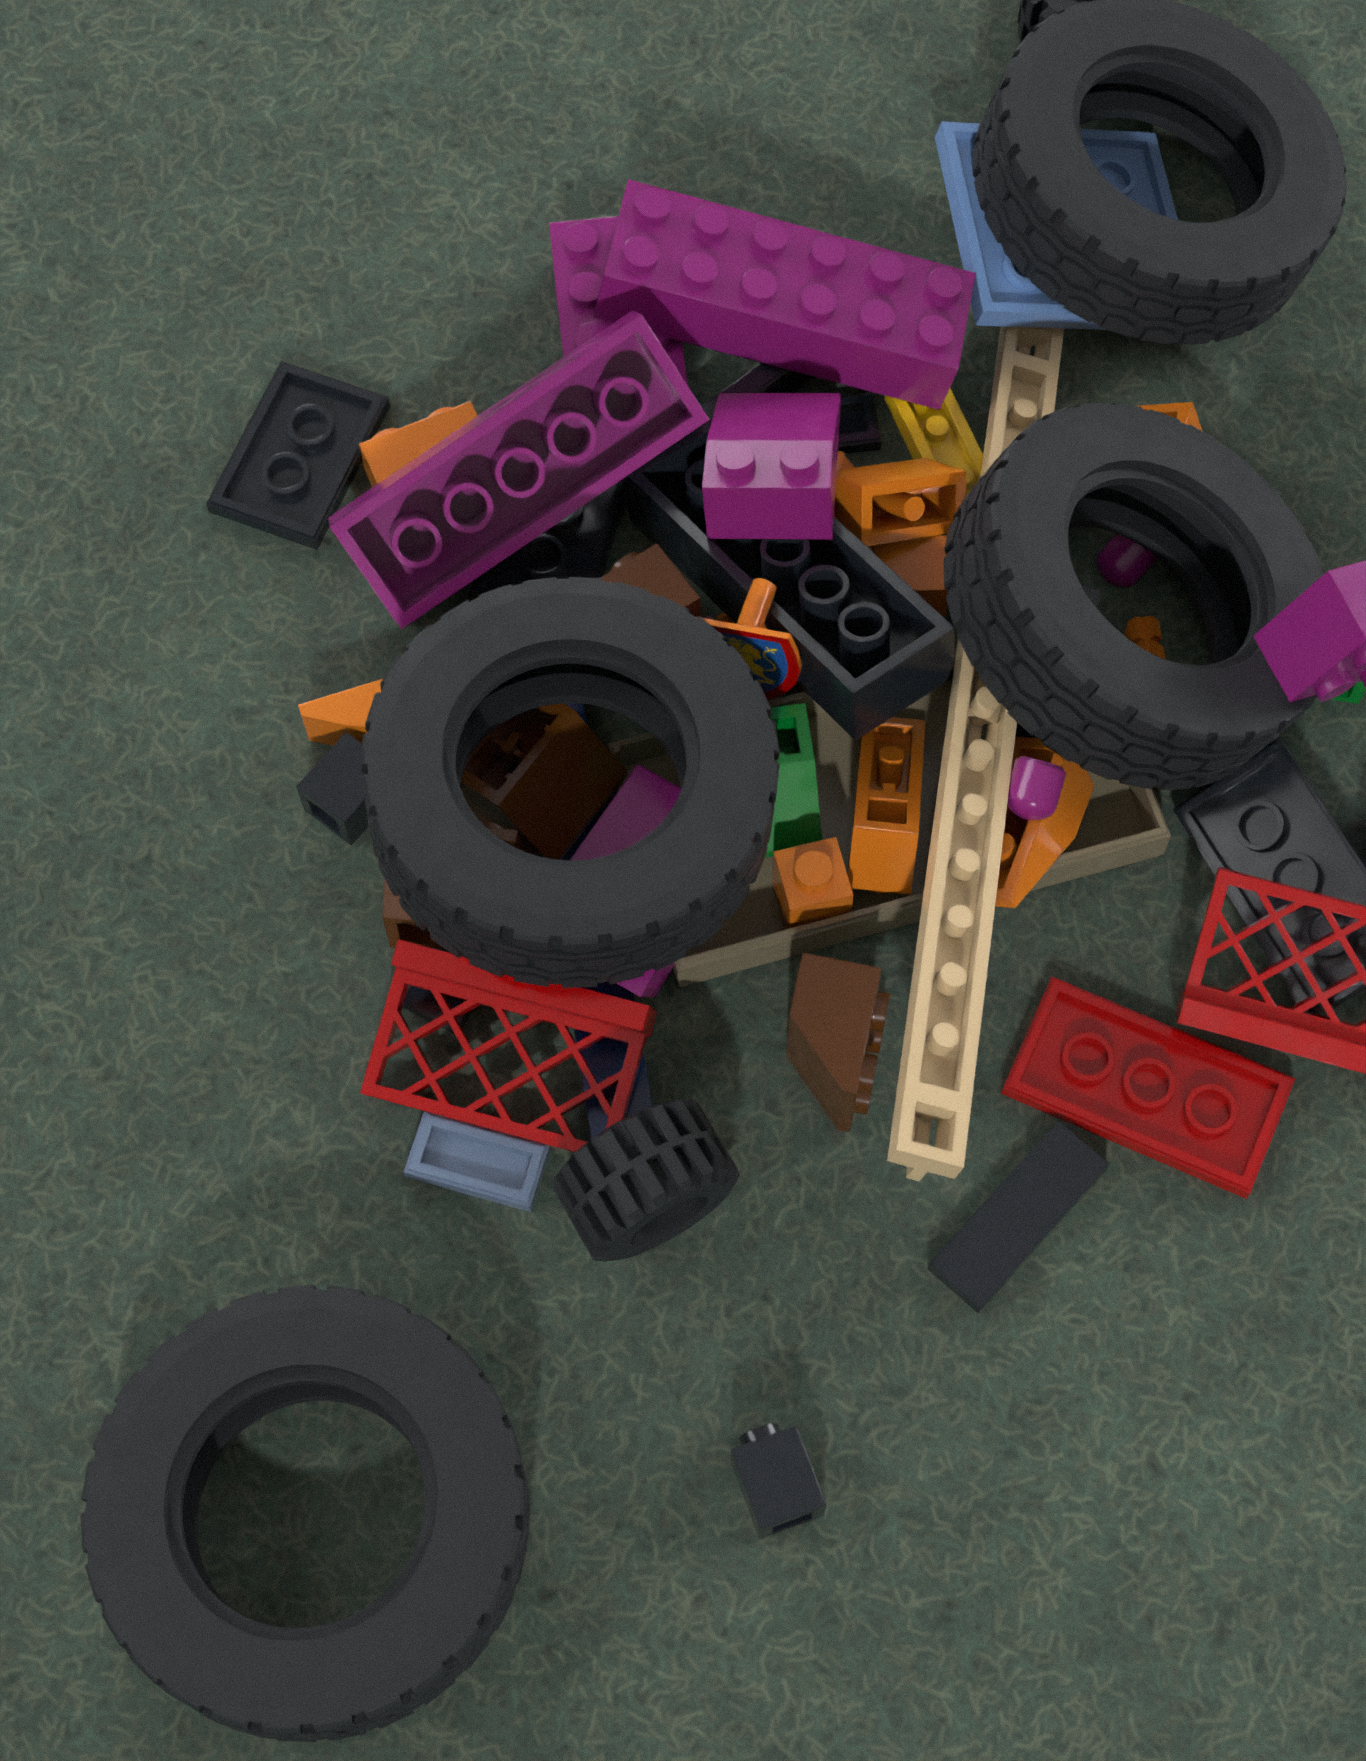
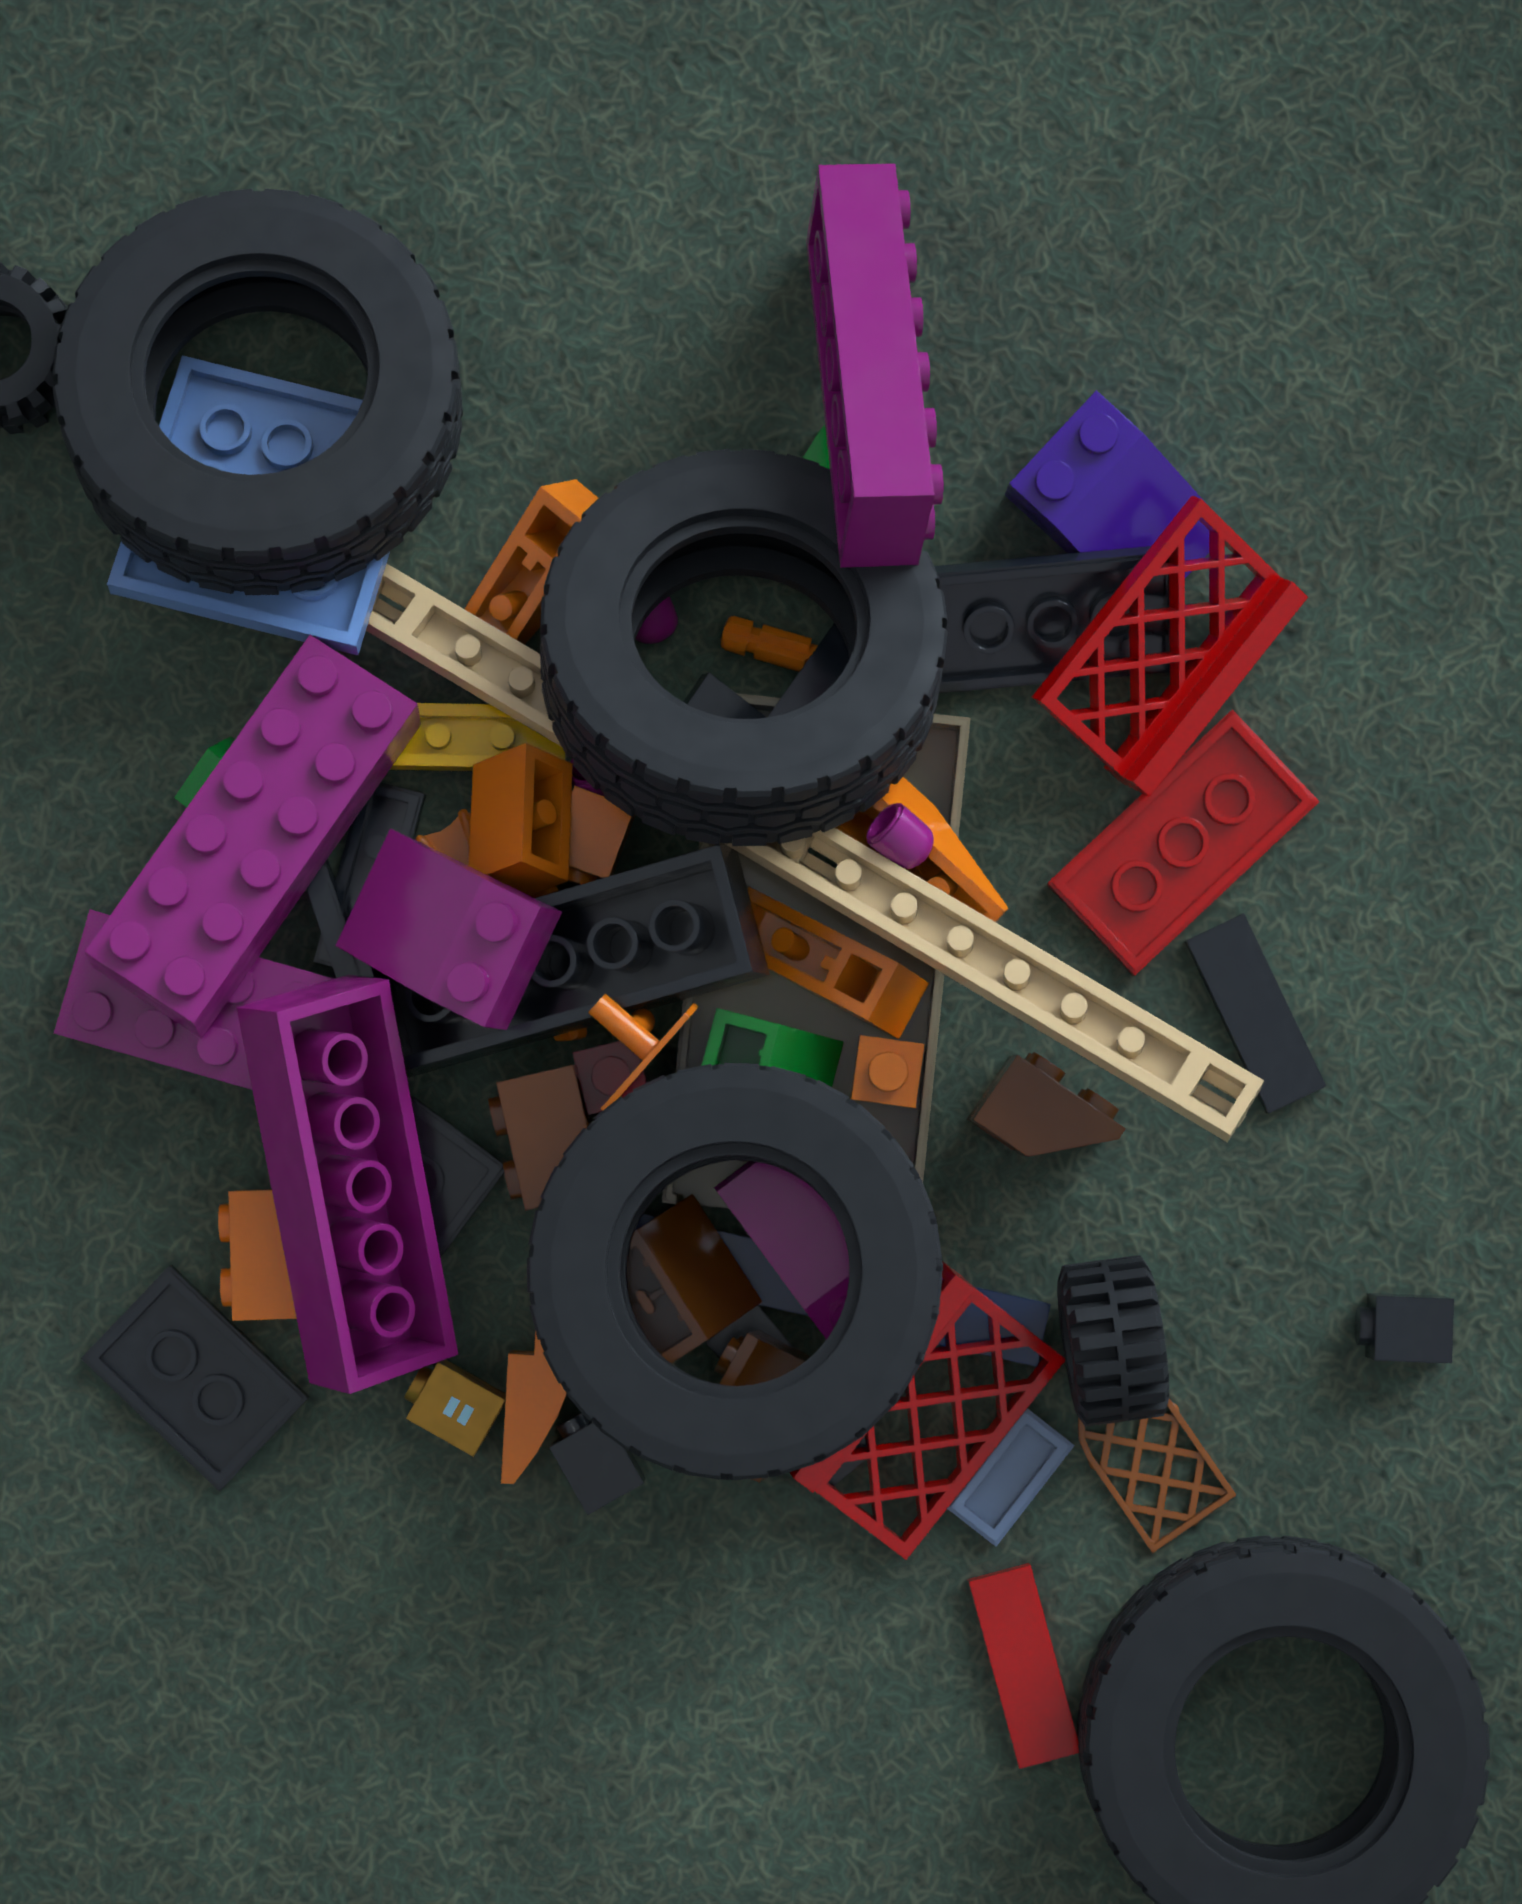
camera: 70 degrees left, 20 degrees up
(302, 1239) = (1024, 1665): none -> red tile
(352, 649) = (454, 1405): none -> pearl gold brick
(490, 1285) = (1190, 1518): none -> dark orange window

